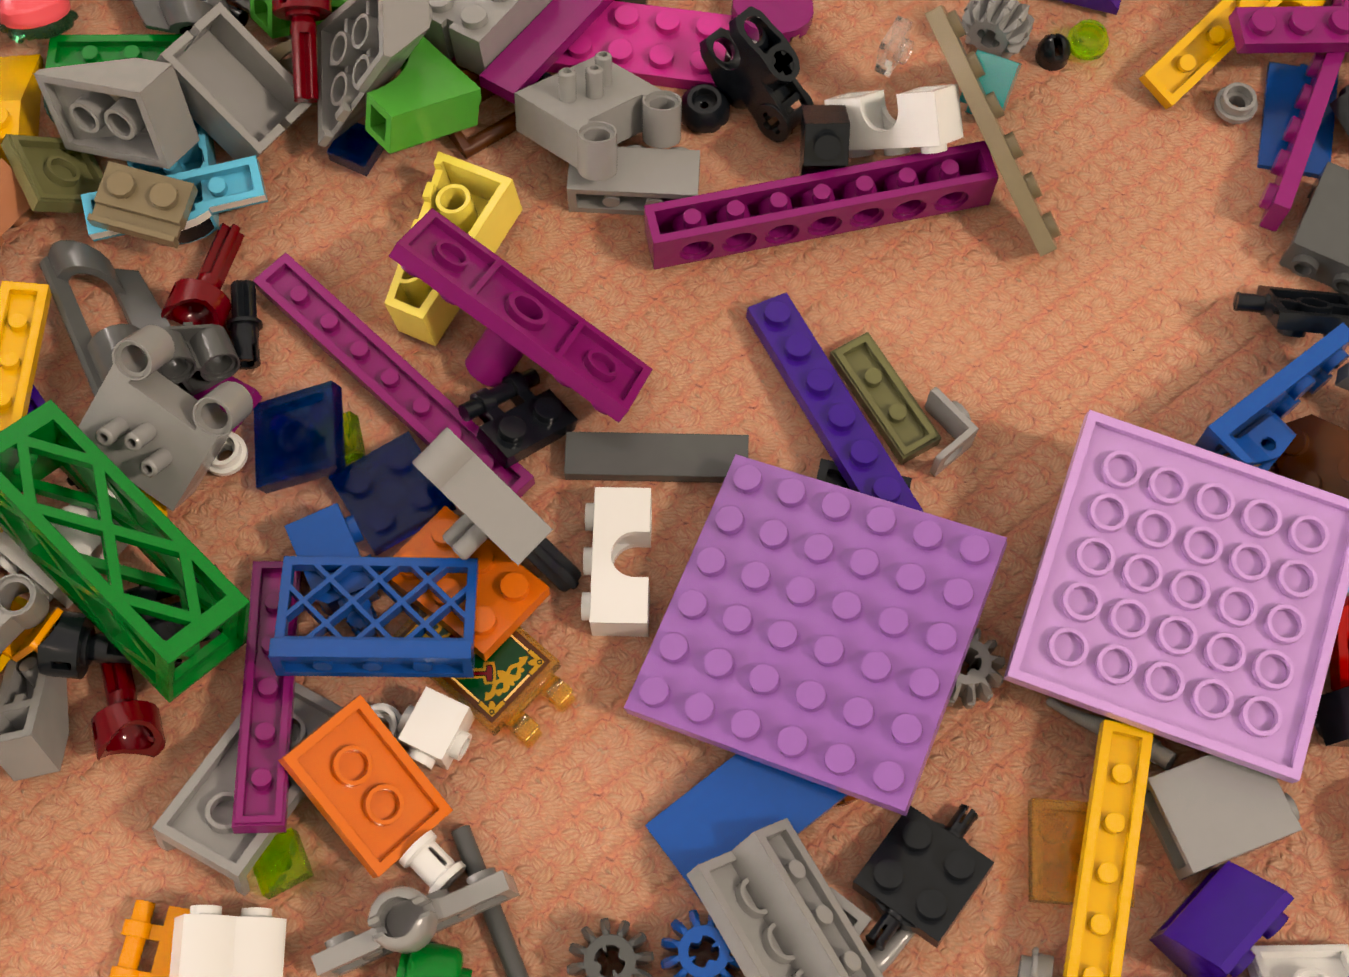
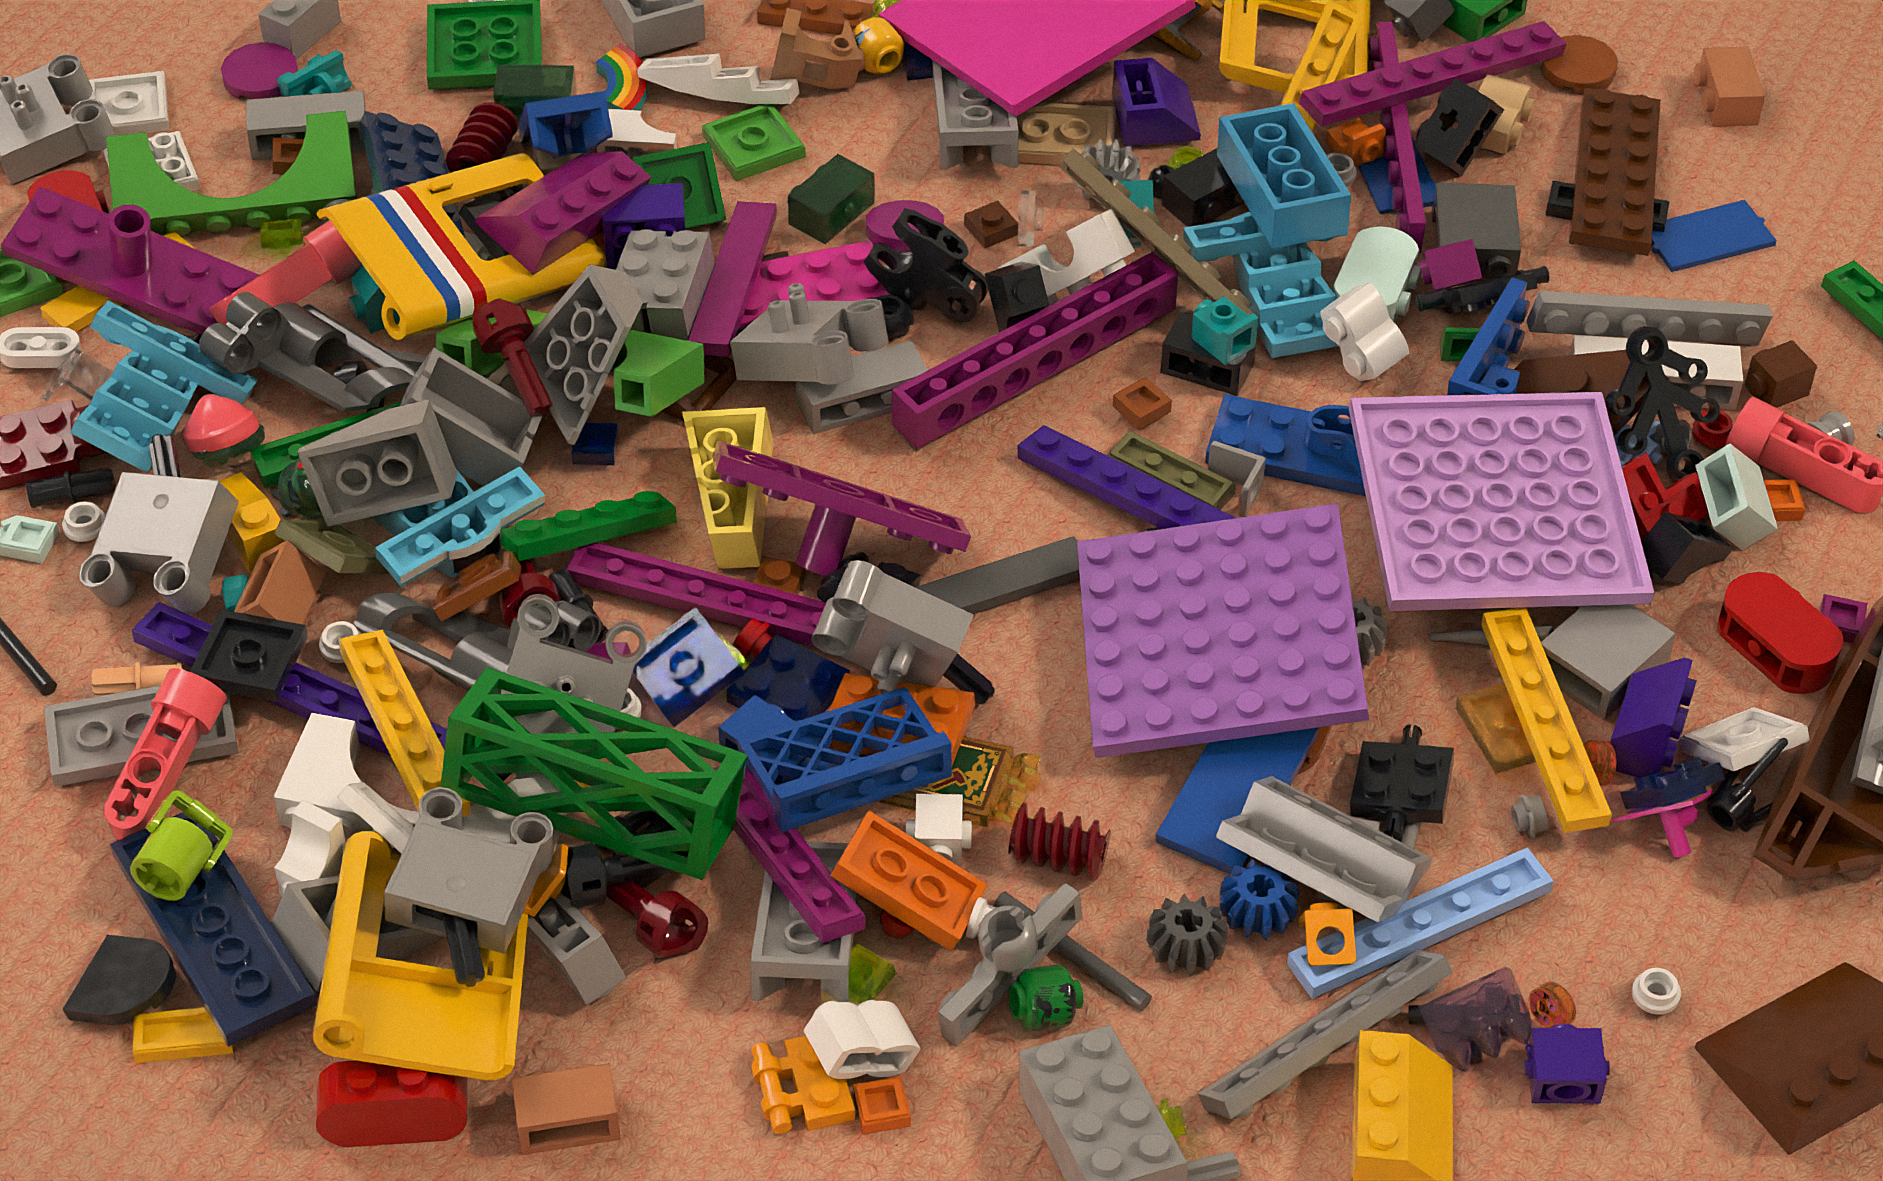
camera: 25 degrees left, 20 degrees down
(21, 266) = (329, 641): none -> white plate
(142, 204) = (441, 534): dark tan plate -> none
(157, 271) = (477, 583): none -> dark orange tile
(294, 241) = (587, 526): none -> green plate
(380, 429) = (753, 638): none -> red plate
(445, 368) = (780, 575): none -> dark orange plate
(540, 798) = (1059, 842): none -> dark red piece
(616, 601) = (1031, 687): white arch -> none
(858, 37) = (991, 224): none -> reddish brown plate
(896, 305) = (1142, 403): none -> dark orange plate
(992, 273) = (1191, 362): none -> black brick
(1010, 261) = (1217, 325): none -> teal brick
(1019, 406) = (1297, 443): none -> blue plate
(1092, 75) = (1200, 191): none -> black brick
(1112, 207) = (1278, 282): none -> medium azure slope
(1141, 945) = (1603, 760): none -> clear orange tile
(1158, 316) = (1364, 332): none -> white brick
(1163, 104) = (1283, 175): none -> dark azure brick
(1207, 252) = (1386, 261): none -> light aqua brick
(1257, 362) = (1455, 342): none -> green slope
(1274, 77) = (1357, 141): none -> orange bracket
(1292, 270) = (1451, 265): none -> magenta brick

